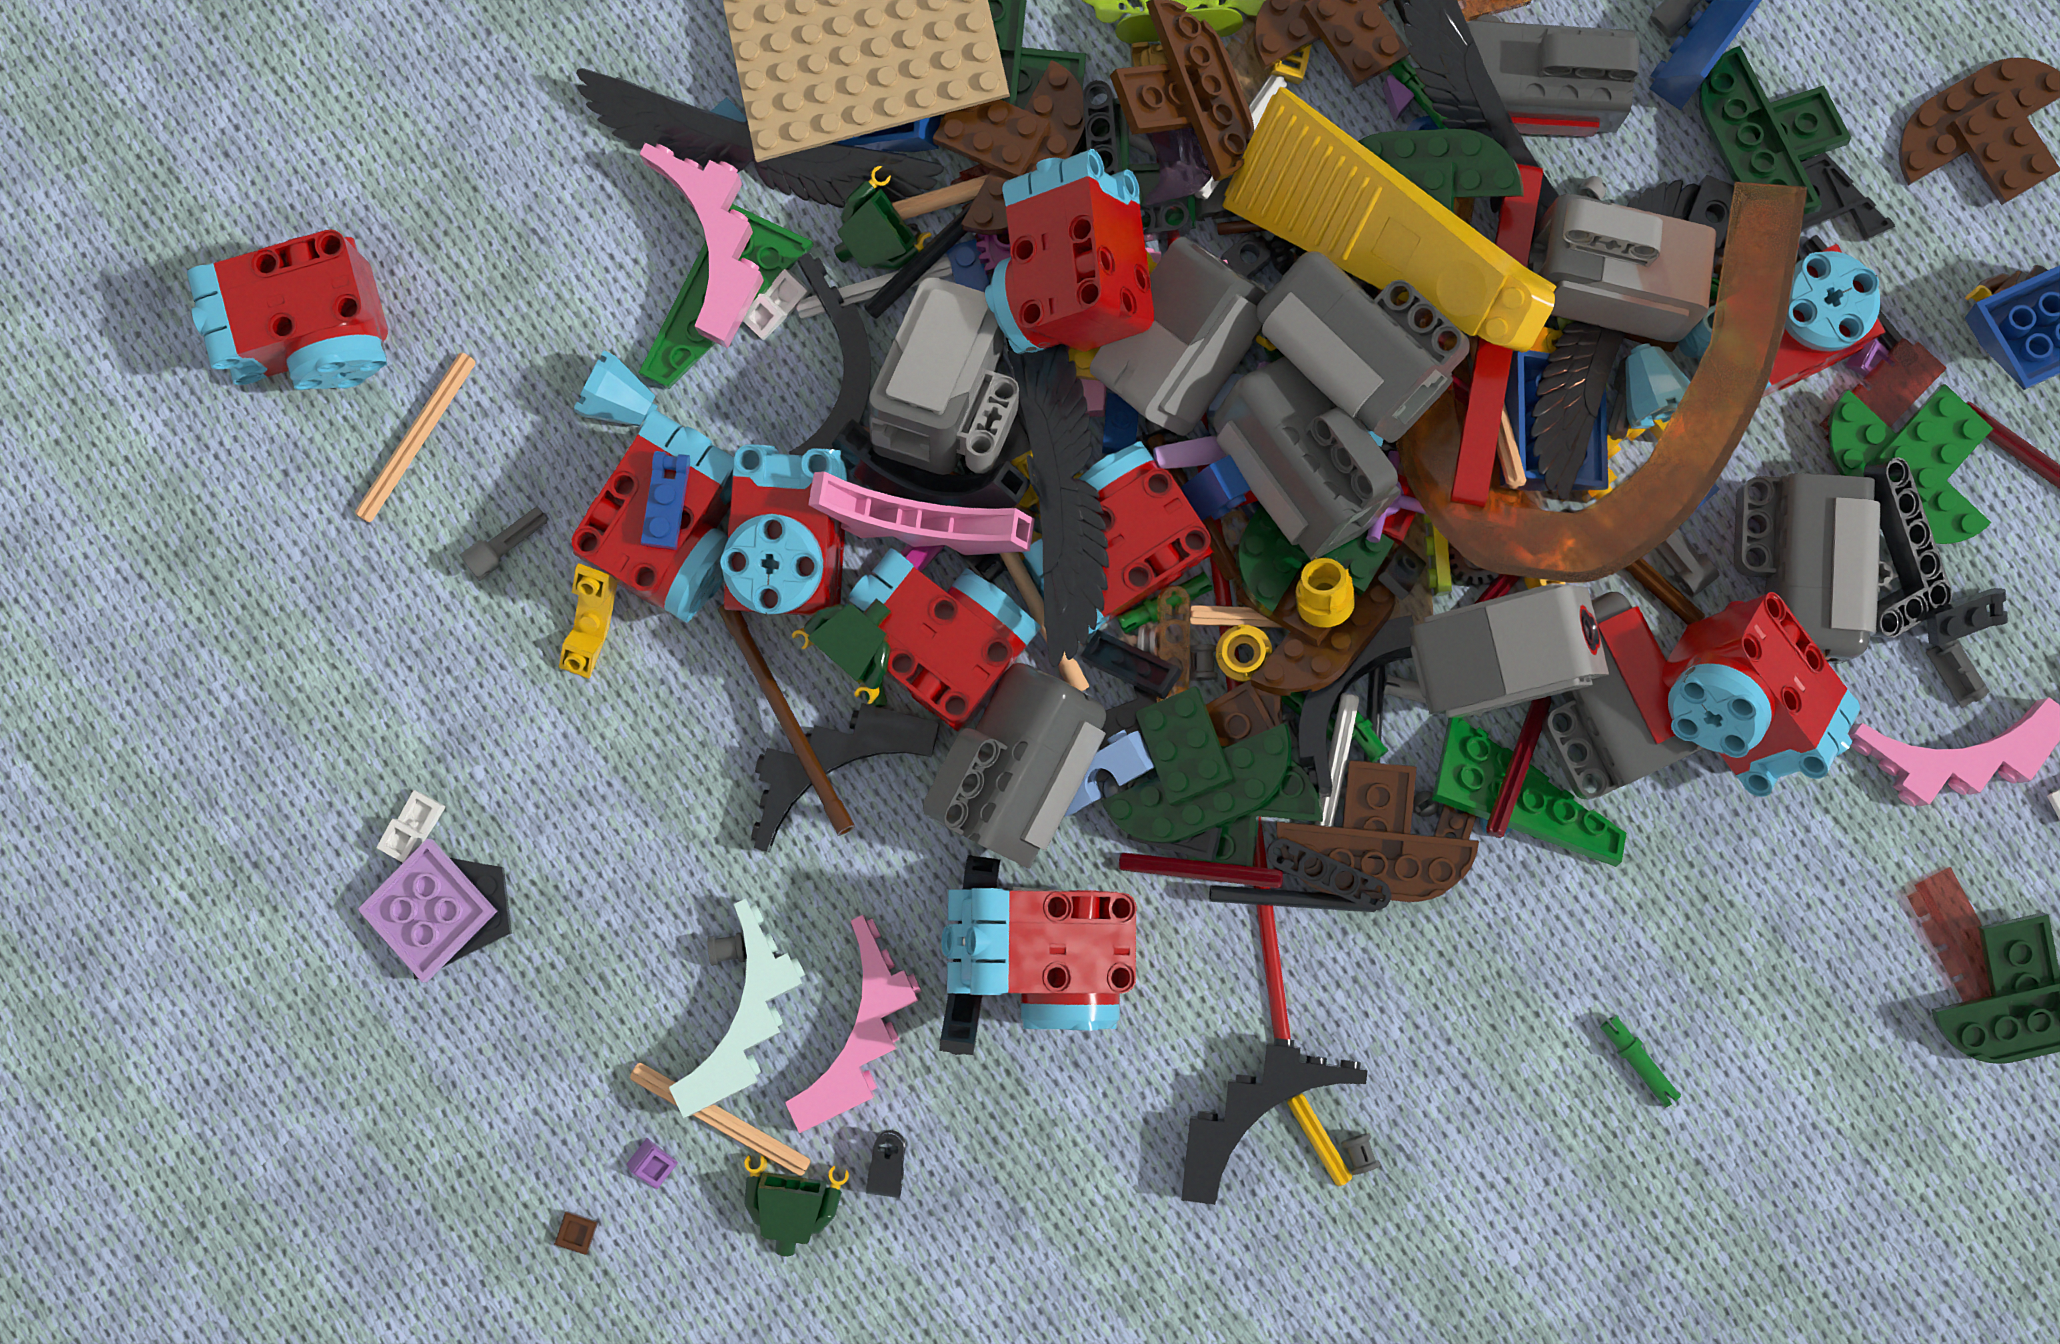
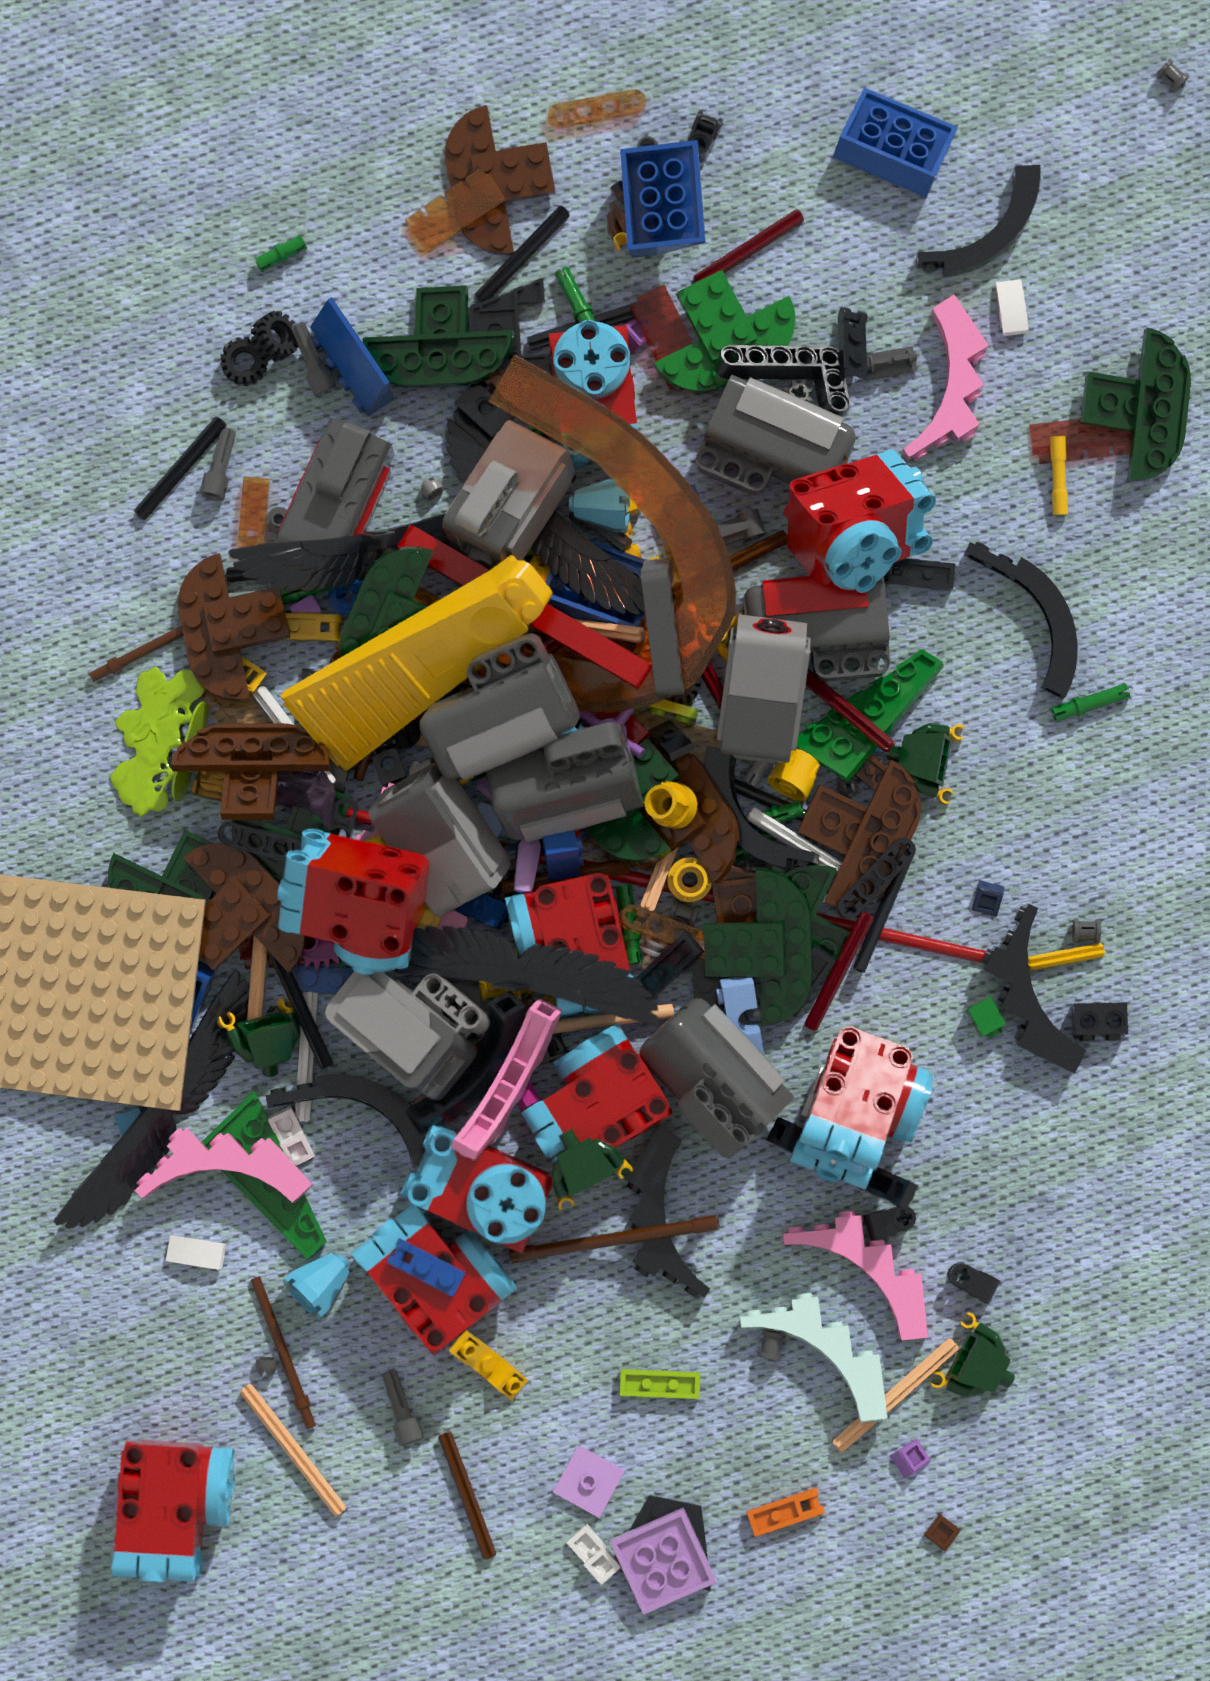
camera: 70 degrees left, 0 degrees up
(430, 655) = (467, 1495): none -> reddish brown axle
(474, 426) = (301, 1400): none -> reddish brown bar
(494, 790) = (588, 1481): none -> lavender plate
(499, 368) = (266, 1364): none -> dark grey hinge
(535, 1035) = (784, 1512): none -> orange plate
(603, 245) = (195, 1252): none -> white slope
(636, 833) = (660, 1383): none -> lime plate
(919, 1033) = (884, 1222): none -> black piece
(1209, 1069) = (986, 1018): none -> green brick
(1264, 1205) = (1099, 1014): none -> black brick
(1355, 1020) = (988, 898): none -> dark blue slope
(1374, 105) = (308, 627): none -> yellow plate
(1415, 733) = (794, 778): none -> yellow piece
(1498, 883) = (926, 757): none -> dark green torso
(1583, 474) = (657, 581): none -> dark grey beam
(1716, 797) = (922, 574): none -> black plate
(1740, 972) = (1053, 606): none -> black arch
(1895, 263) = (581, 310): none -> green pin
(1914, 194) = (522, 254): none -> black axle
(1924, 915) = (1058, 459): none -> yellow piece
(1926, 94) = (451, 217): none -> clear orange windscreen

